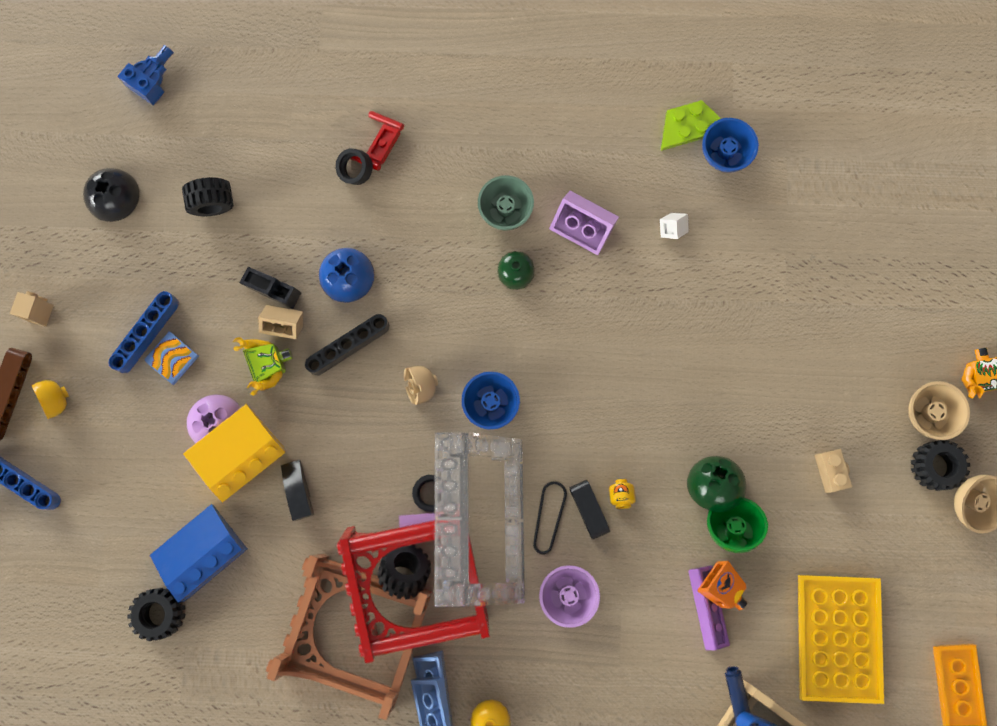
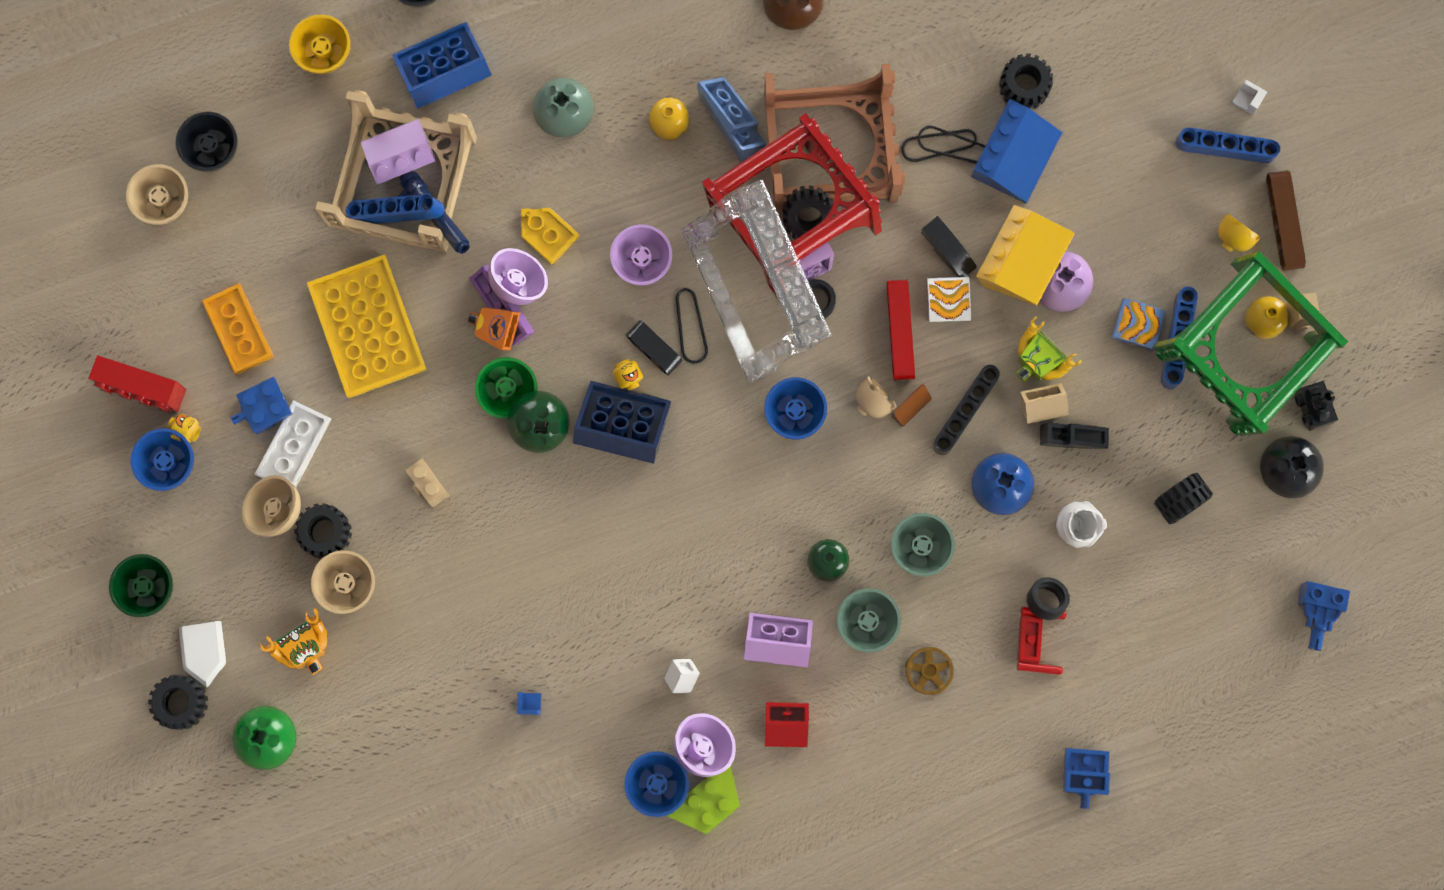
camera: 155 degrees right, 0 degrees up
(64, 230) = (1316, 405): none -> black brick
(64, 320) = (1259, 318): none -> yellow cylinder
(135, 309) = (1184, 345): none -> green arch
(260, 579) = (949, 133): none -> black piece
(262, 581) = (933, 135): none -> black piece
(299, 212) = (1080, 524): none -> white helmet
(317, 446) = (948, 299): none -> slope
(370, 436) = (900, 330): none -> red beam
(387, 29) = (1086, 773): none -> blue plate
(390, 368) = (912, 405): none -> dark orange slope
(432, 235) = (932, 538): none -> sand green piece
(472, 154) = (929, 670): none -> pearl gold wheel
(604, 156) = (786, 724): none -> red slope
(643, 455) = (621, 422): none -> dark blue slope
(644, 658) = (547, 233): none -> yellow tile
(674, 152) = (704, 745): none -> lavender piece
(689, 624) = (517, 277): none -> lavender piece
(809, 252) = (529, 703): none -> blue panel
(941, 555) = (294, 444): none -> white tile
(960, 602) = (262, 406): none -> blue plate

